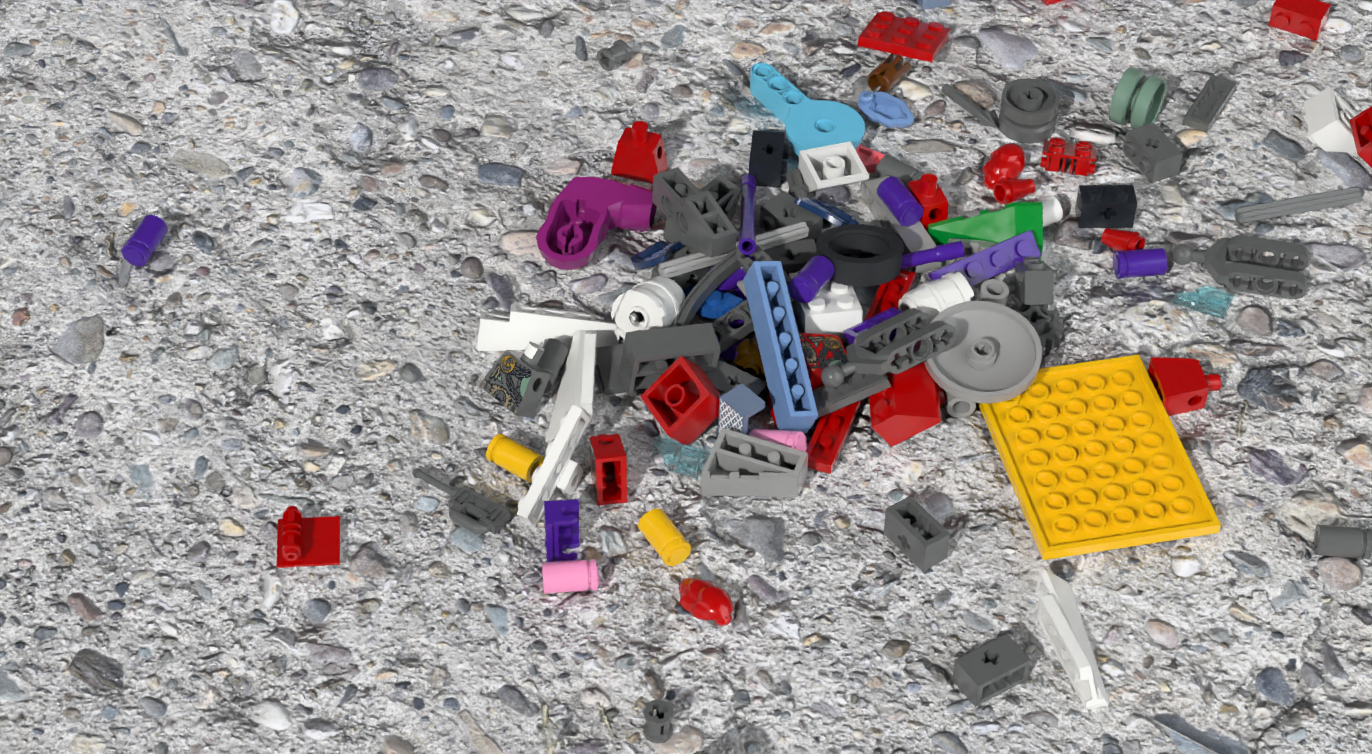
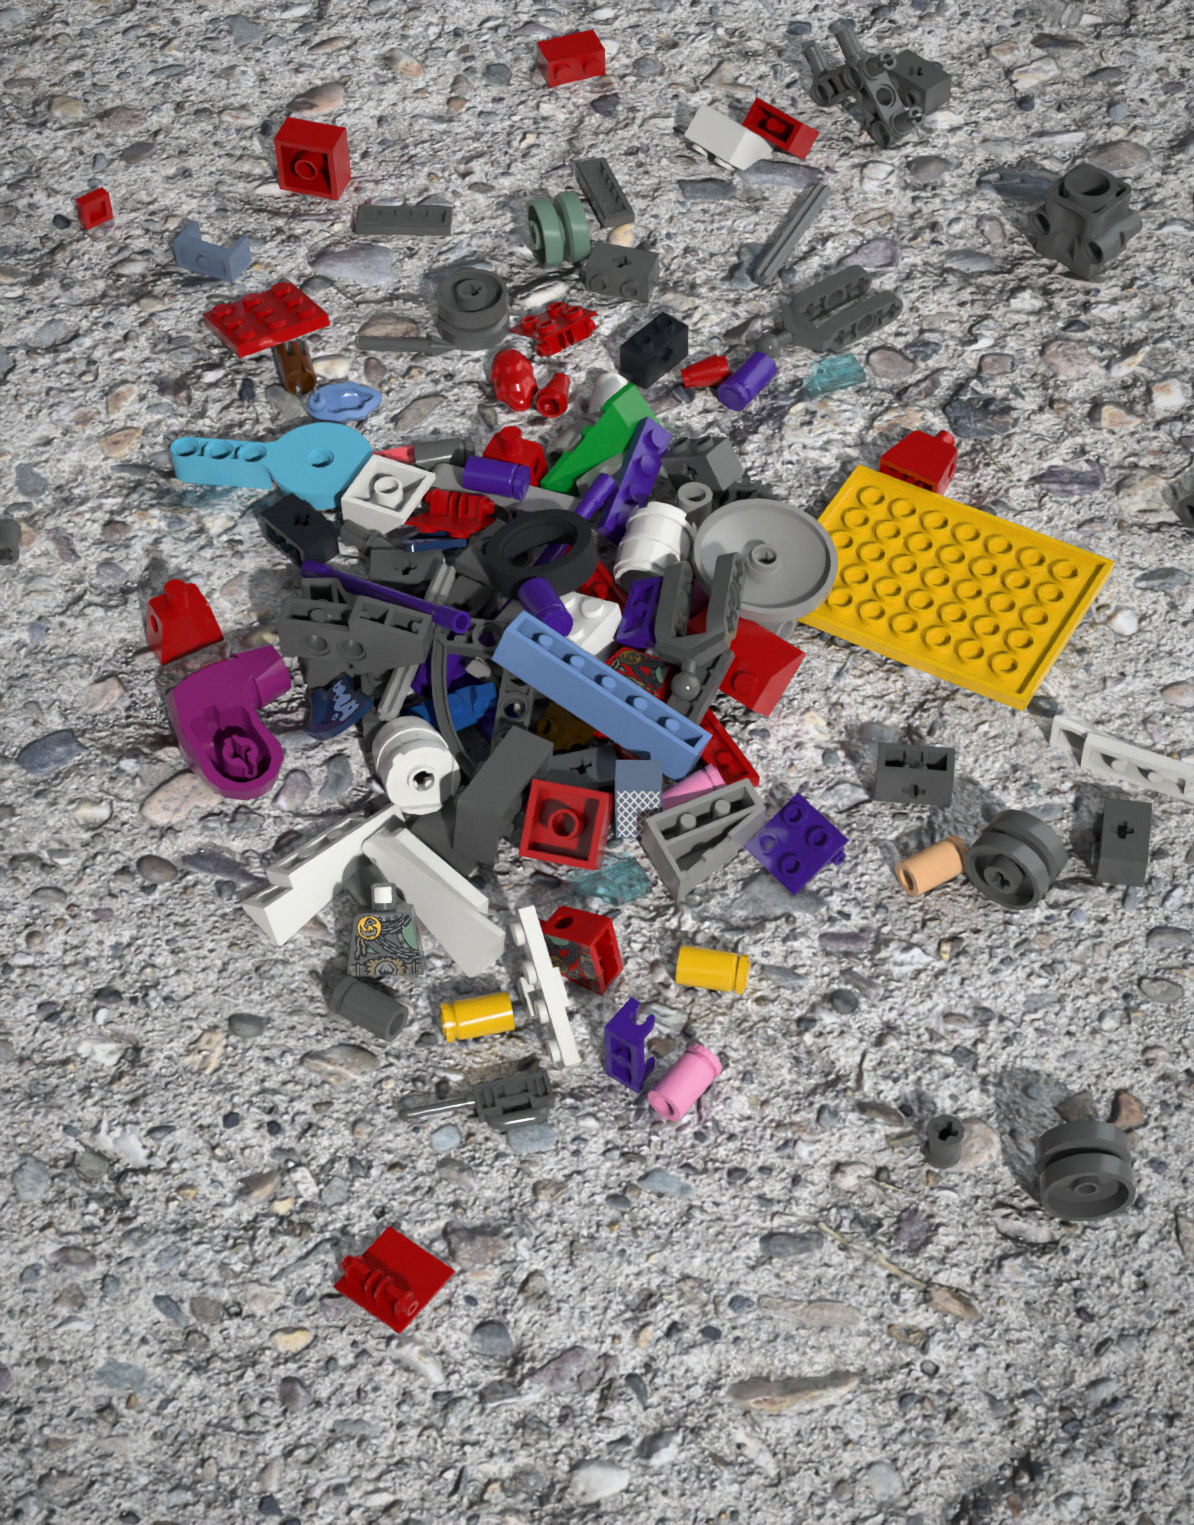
camera: 45 degrees left, 5 degrees up
(469, 410) = (368, 1008): none -> dark grey piece
(706, 600) = (821, 995): red arm -> none
(803, 517) = (797, 844): none -> dark purple hinge
(858, 208) = (454, 513): none -> red hinge
(861, 589) = (932, 866): none -> light nougat piece
(902, 619) = (1015, 859): none -> dark grey wheel
(1064, 39) = (404, 220): none -> dark grey plate

